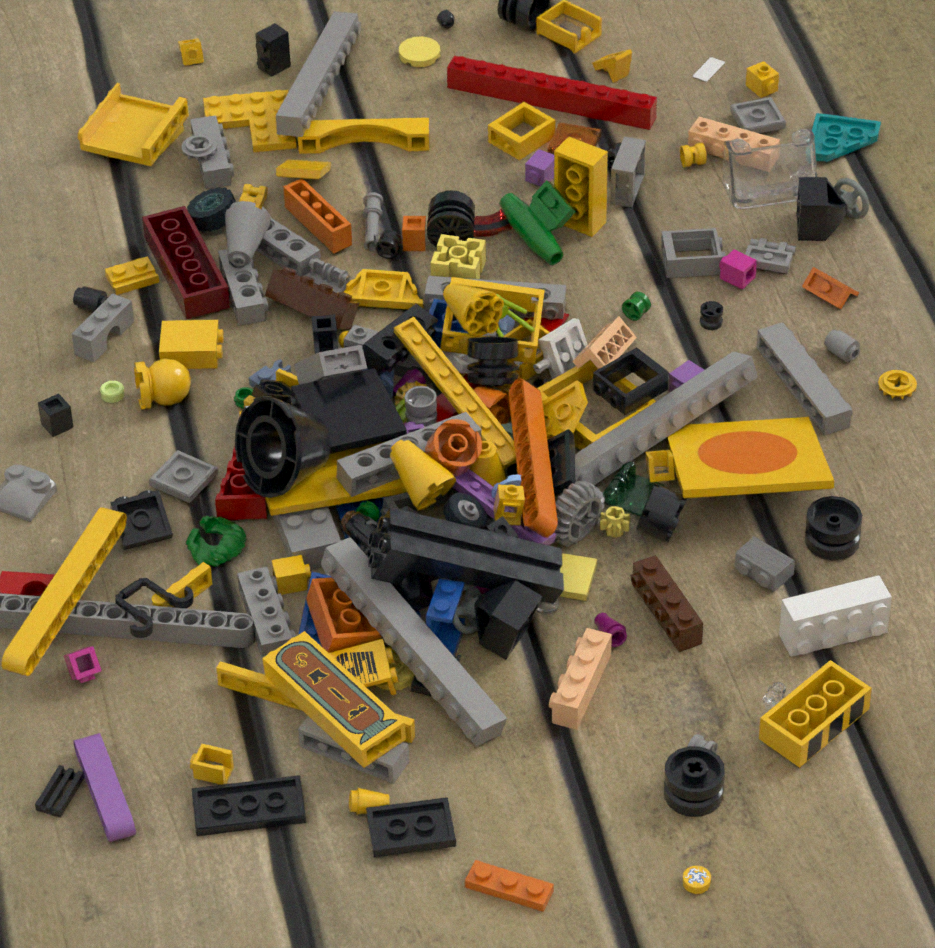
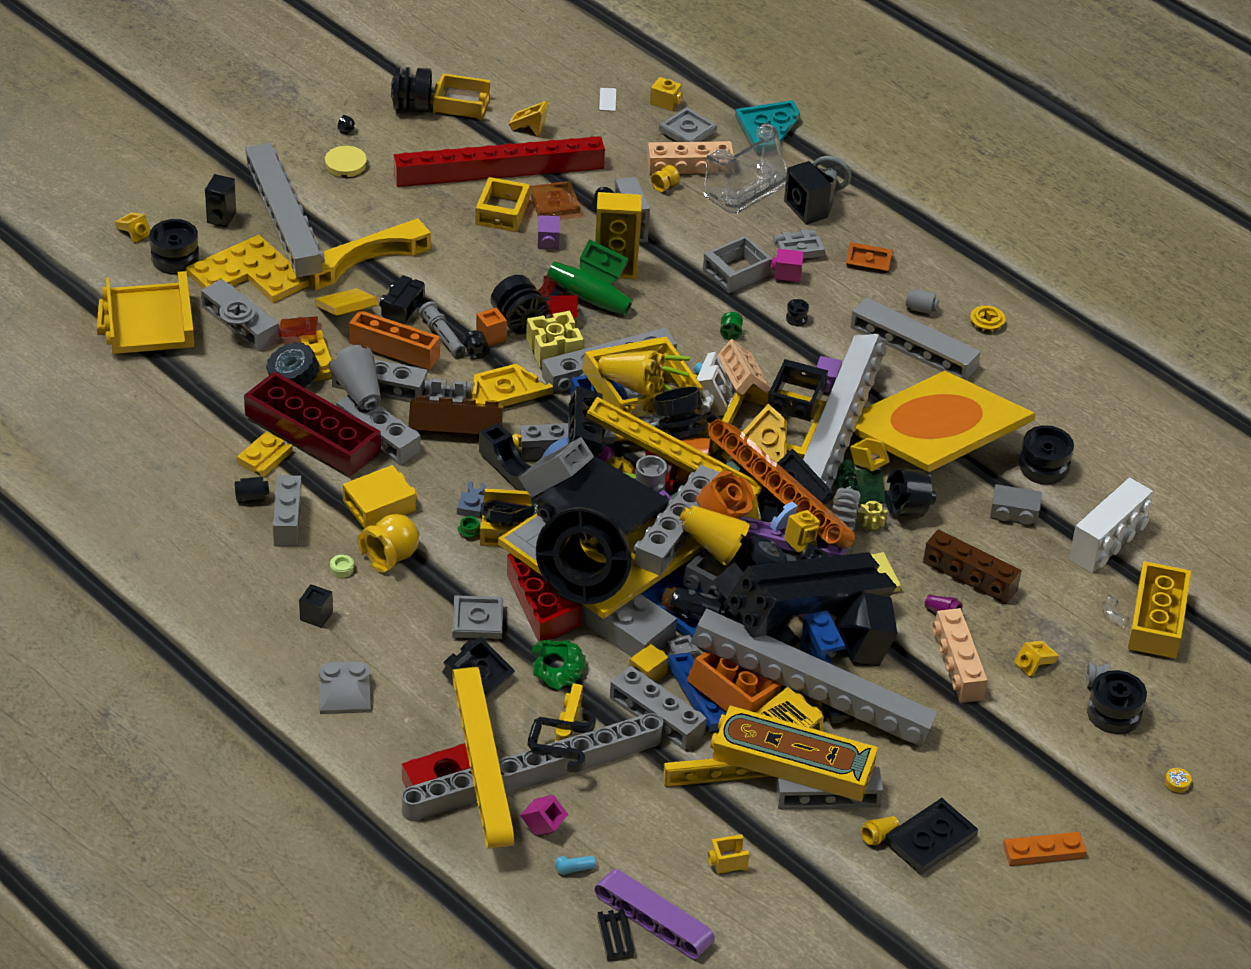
camera: 35 degrees left, 0 degrees up
(72, 716) = (568, 866): none -> medium azure arm
(203, 75) = (174, 245): none -> black wheel
(248, 805) = (782, 876): black tile -> none
(250, 178) = (298, 326): none -> clear red piece
(357, 183) = (402, 299): none -> black brick
(369, 509) = (674, 579): green plate -> none
(496, 237) = (562, 304): none -> red brick
(659, 707) = (1035, 654): none -> yellow bracket

